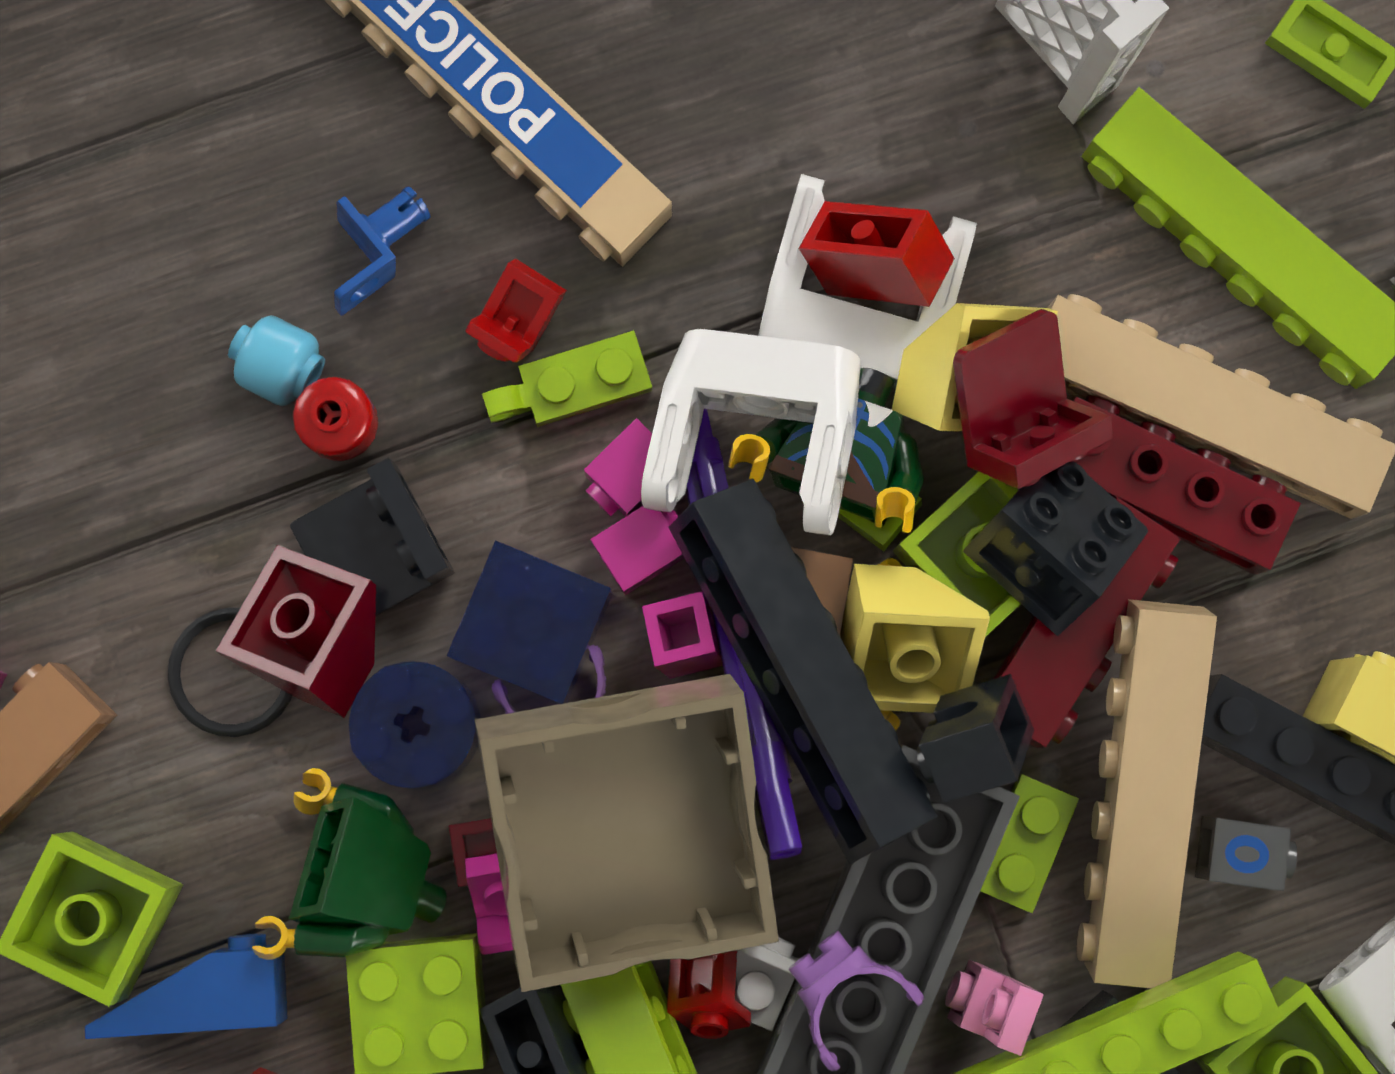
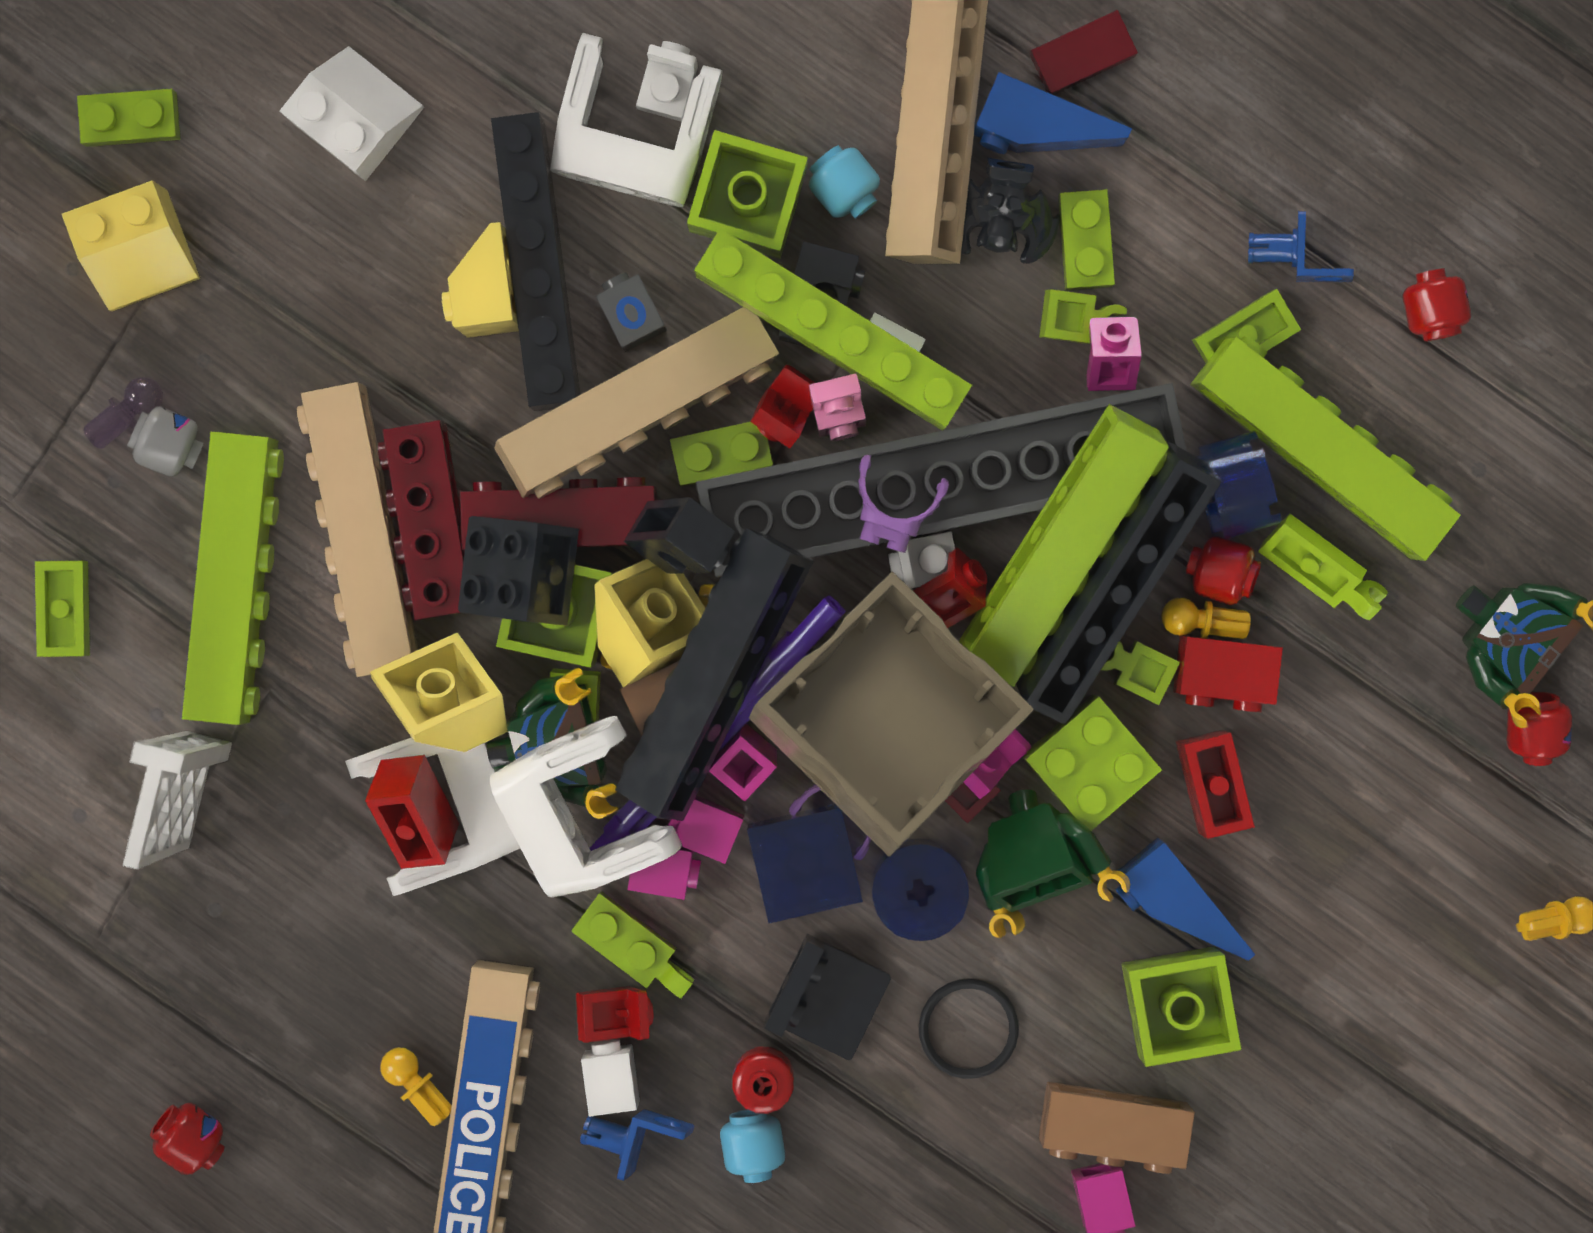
camera: 120 degrees left, 5 degrees up
(306, 630) = (909, 1001): dark red slope -> none
(452, 262) = (610, 1078): none -> white brick
(617, 59) = (401, 1069): none -> yellow axle
(1018, 406) = (448, 655): dark red bracket -> none
(1030, 946) = (784, 407): none -> red bracket

